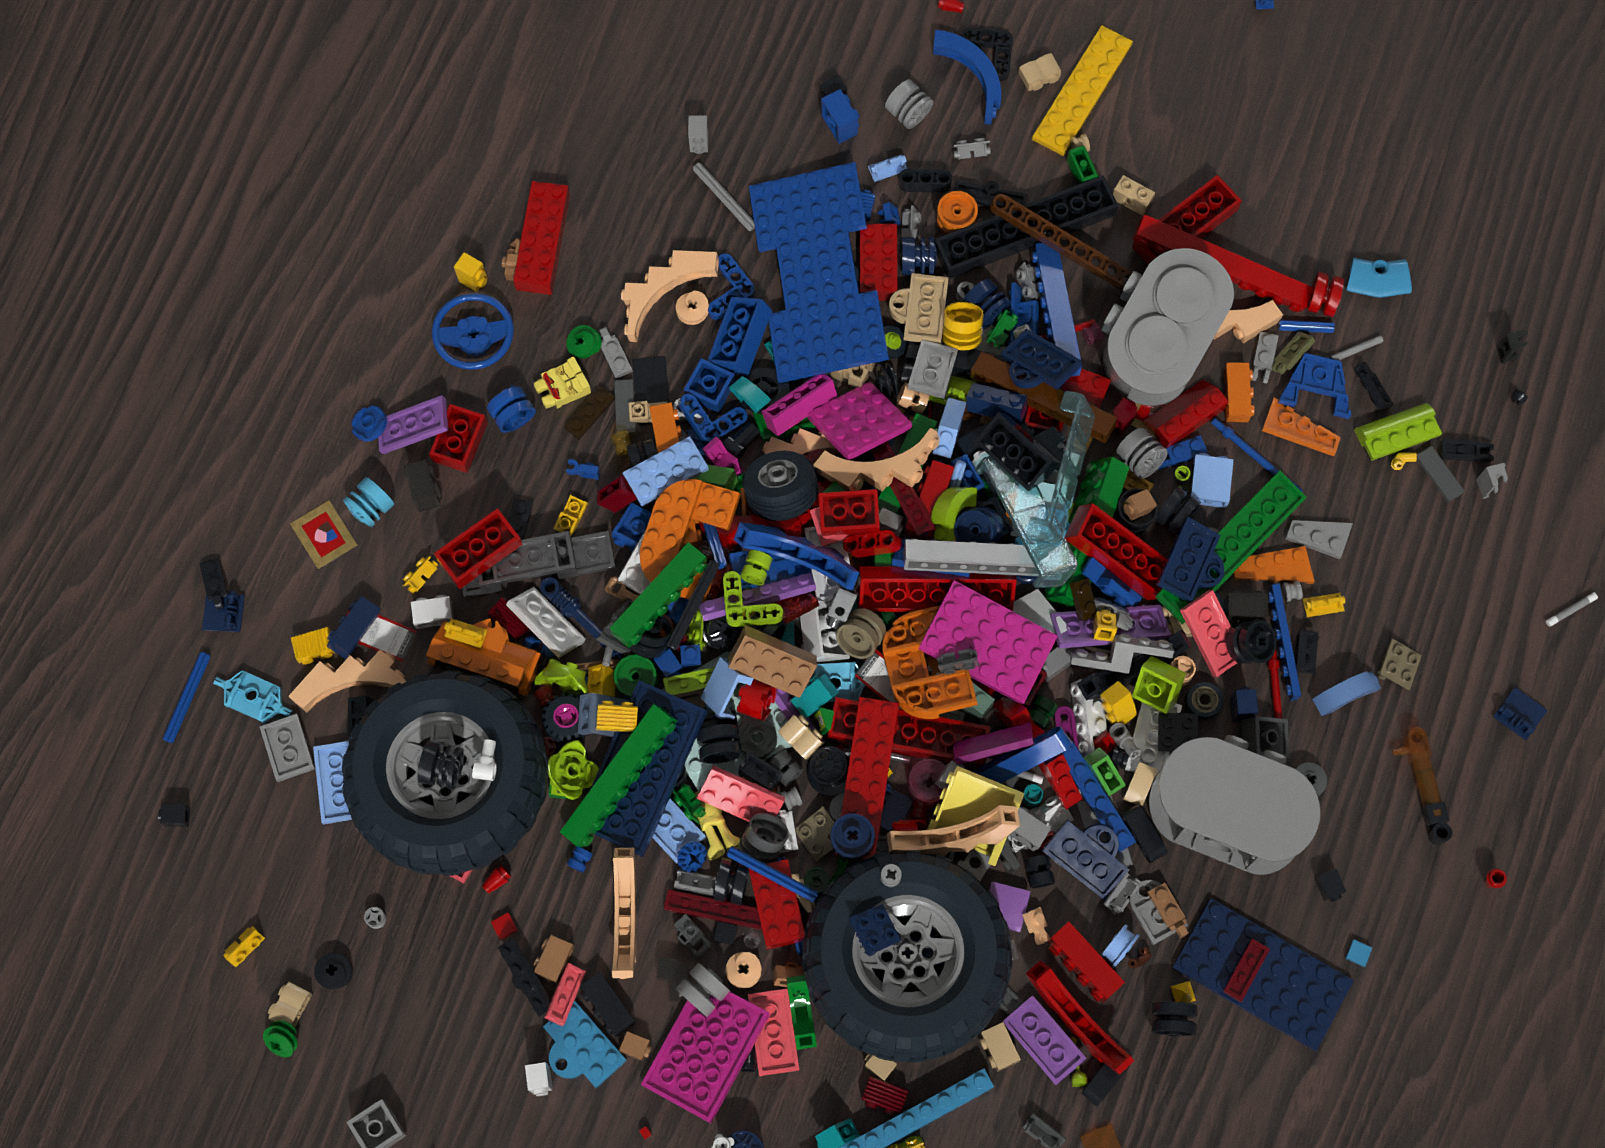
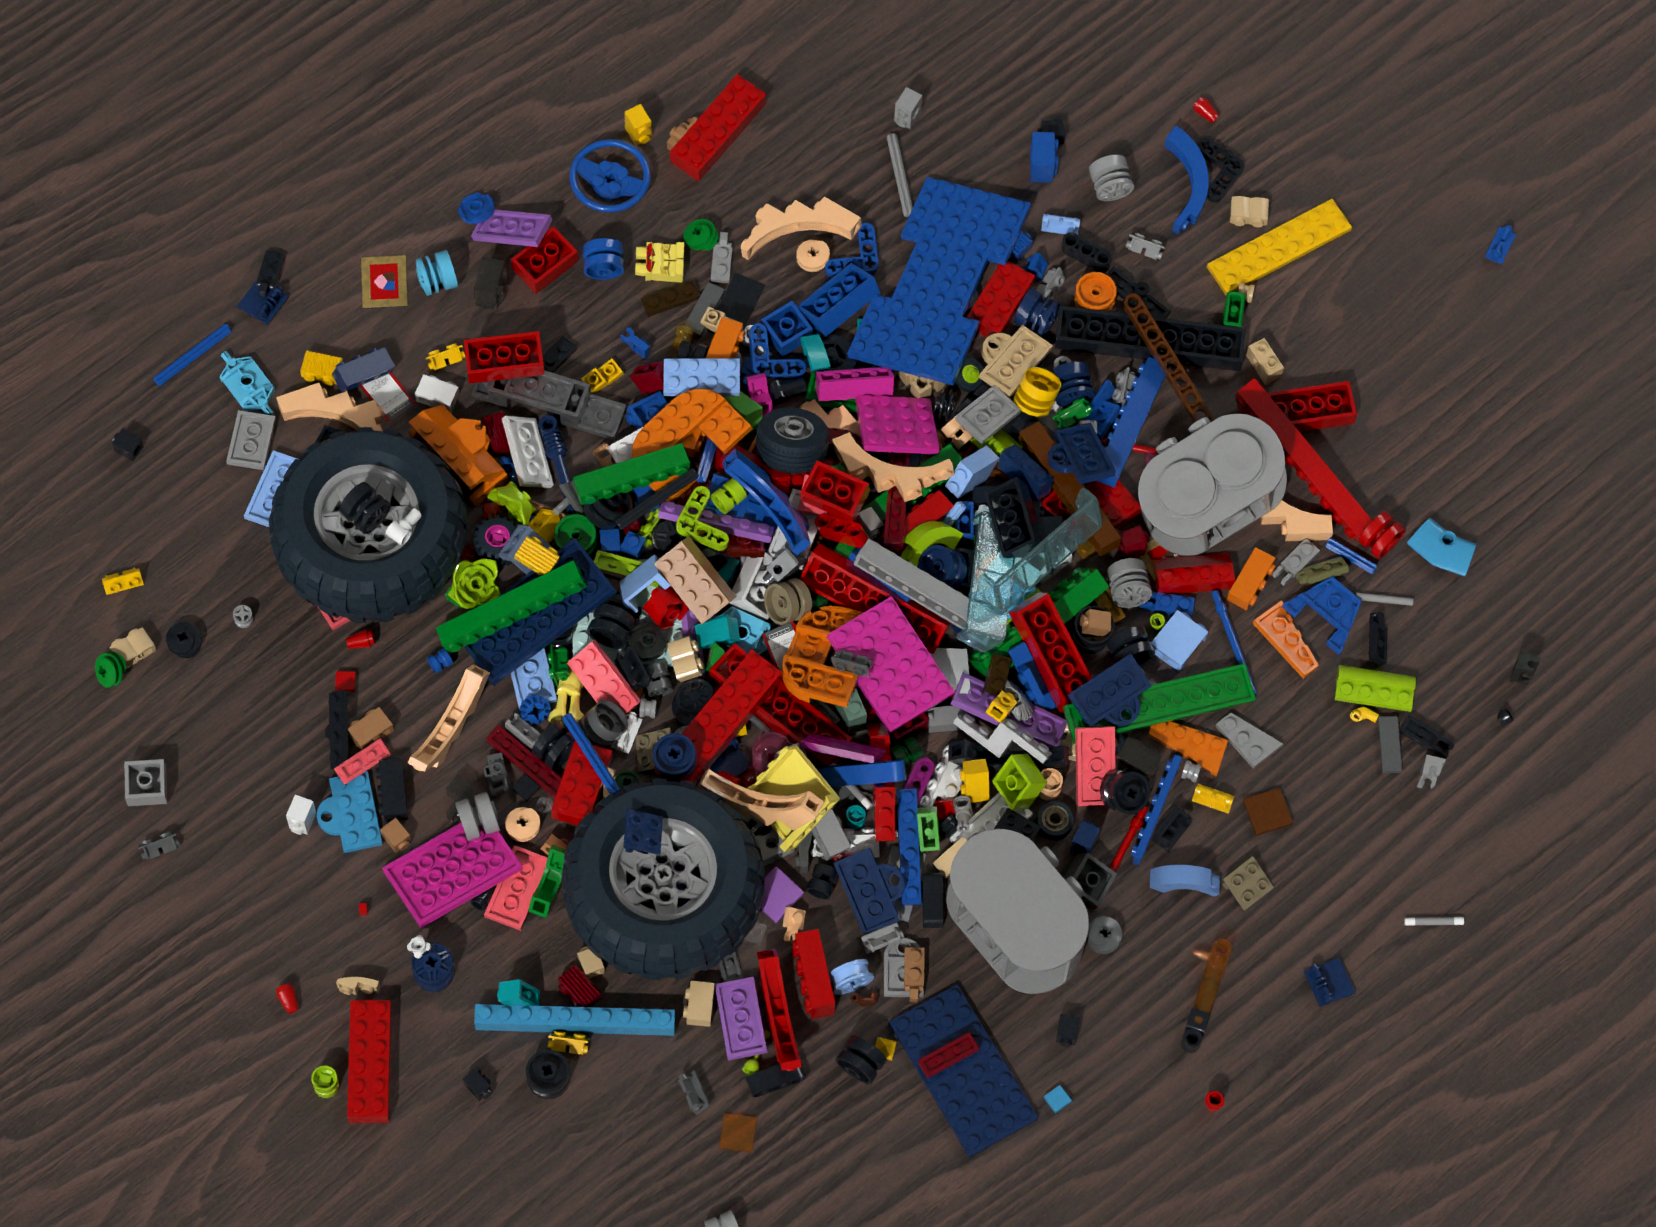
camera: 25 degrees right, 5 degrees down
(465, 633) = (452, 421): yellow hinge -> none
(892, 879) = (682, 801): light grey wheel -> none
(1376, 591) = (1267, 812): none -> reddish brown tile

